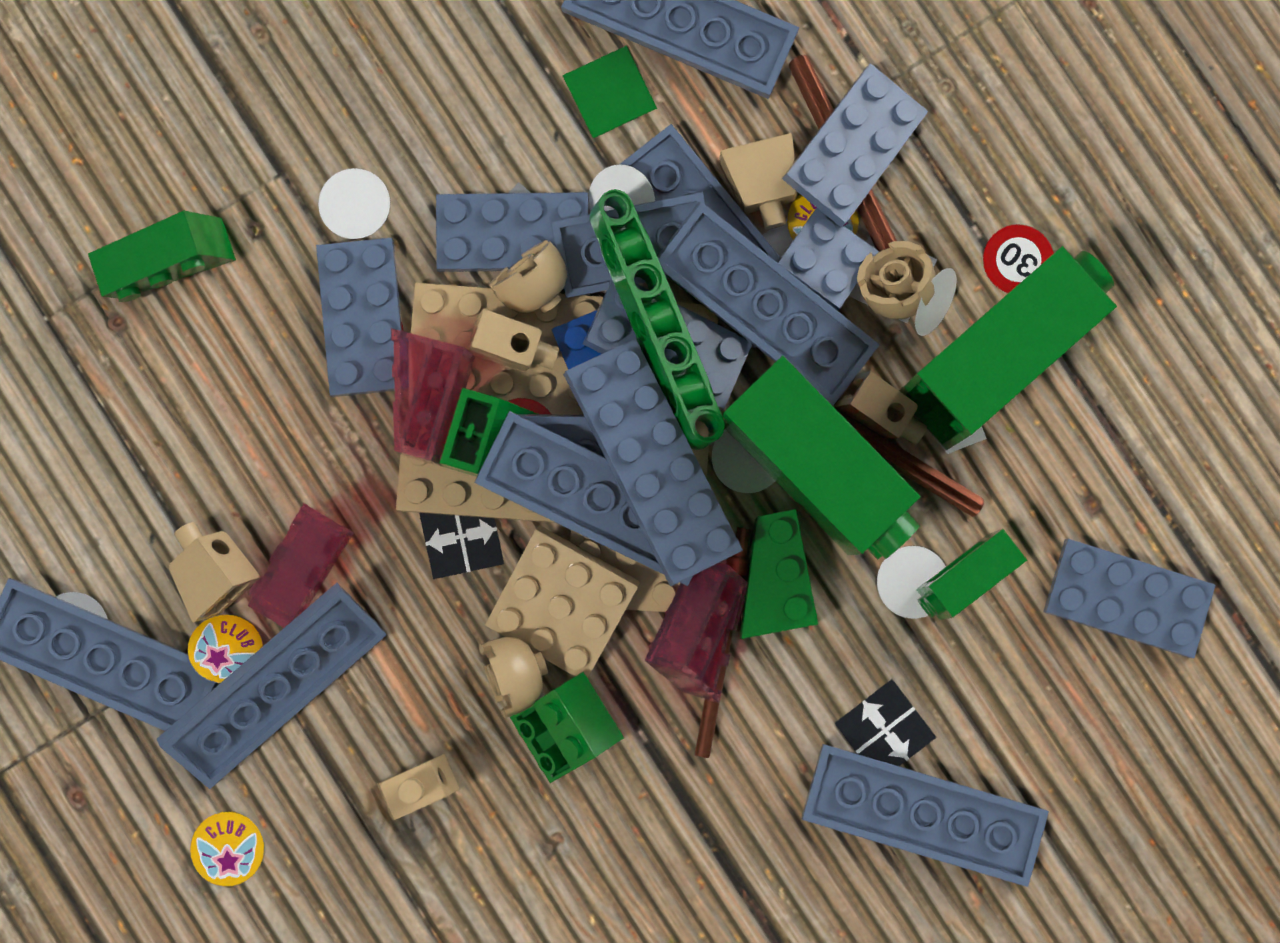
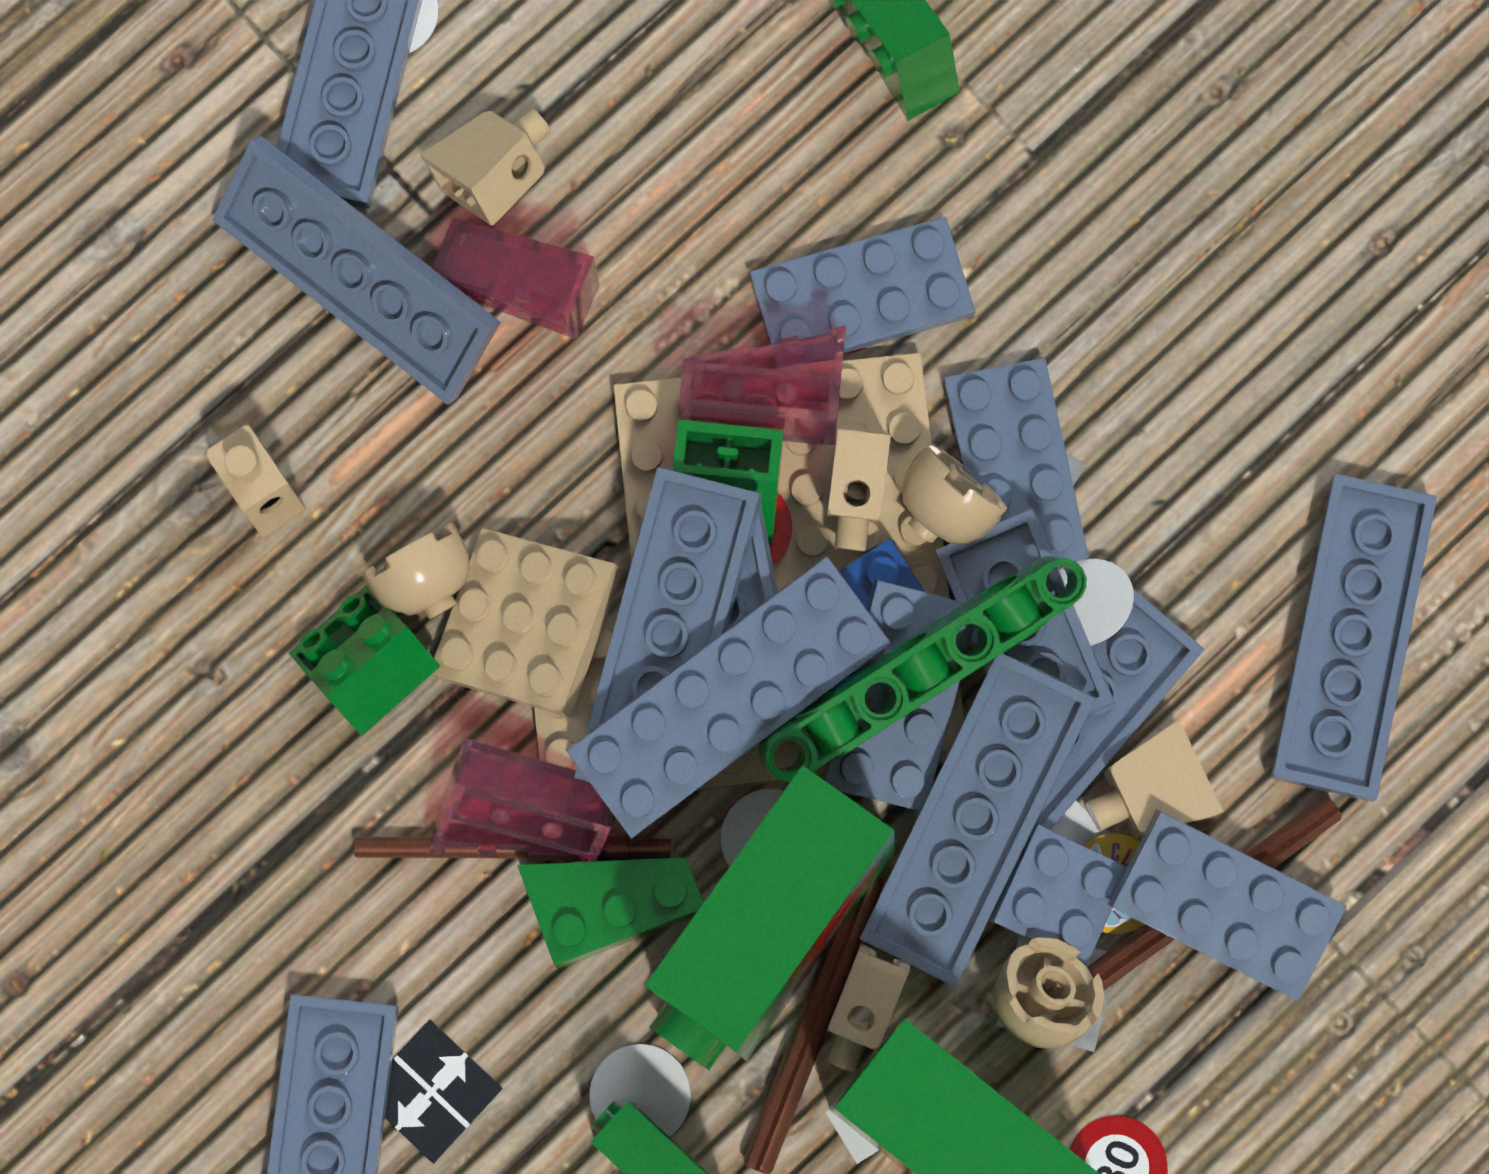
camera: 85 degrees right, 5 degrees down
(222, 646) = (398, 199): sticker -> none
(227, 849) = (139, 258): sticker -> none
(354, 203) = (1013, 256): white sticker -> none
(460, 543) = (585, 479): black sticker -> none
(609, 91) = (1235, 562): green sticker -> none
(931, 315) = (1042, 1064): white sticker -> none

